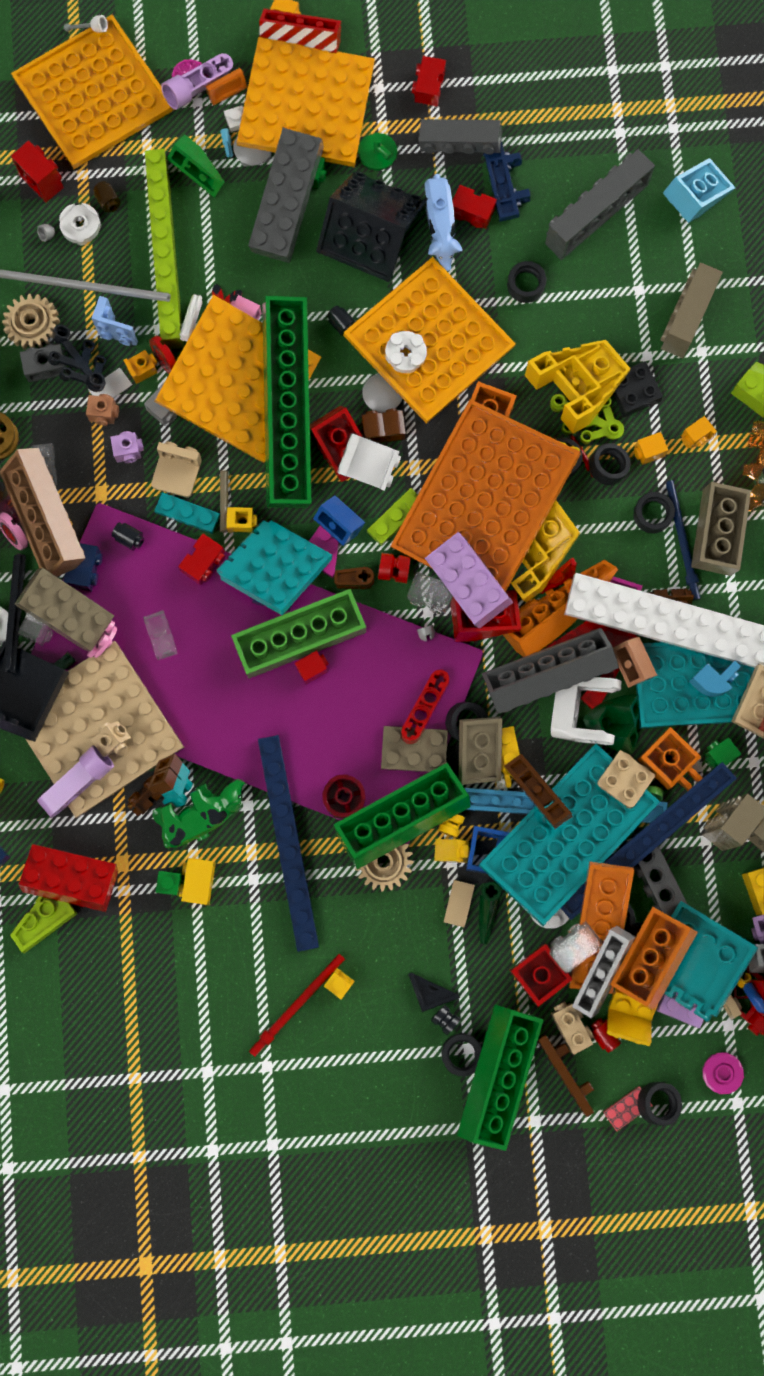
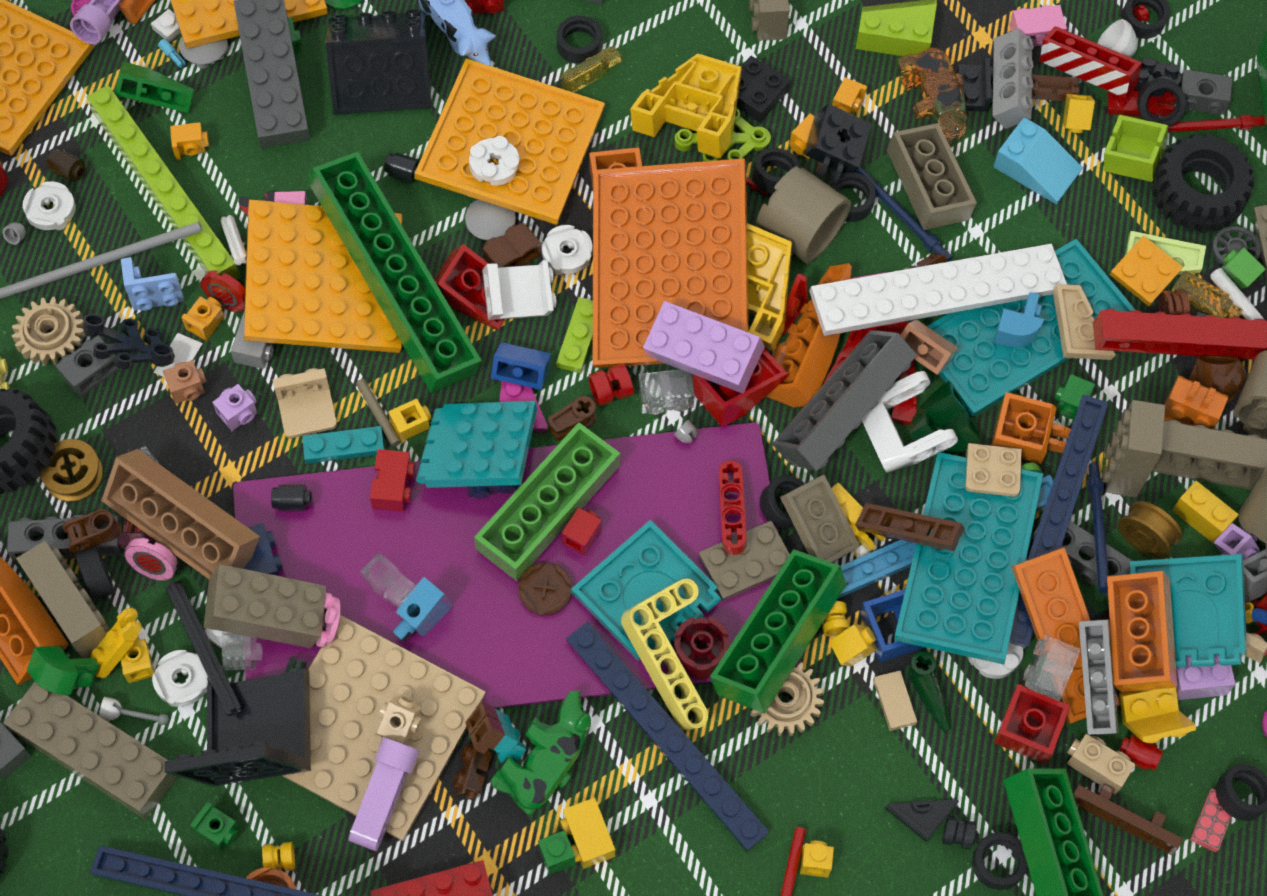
camera: 30 degrees left, 15 degrees down
(170, 667) = (428, 603): none -> dark azure torso
(201, 220) = (188, 139): none -> light orange brick
(264, 694) = (545, 589): none -> reddish brown tile
(314, 786) = (664, 652): none -> light yellow beam
(331, 735) = (636, 572): none -> teal hinge
(416, 437) = (567, 263): none -> white plate
(520, 311) = (590, 70): none -> clear yellow hinge
(605, 512) = (804, 213): none -> dark tan brick
(662, 476) = (836, 141): none -> black hinge
(694, 829) = (1095, 488): none -> dark blue bar
(711, 884) = (1149, 530): none -> pearl gold wheel

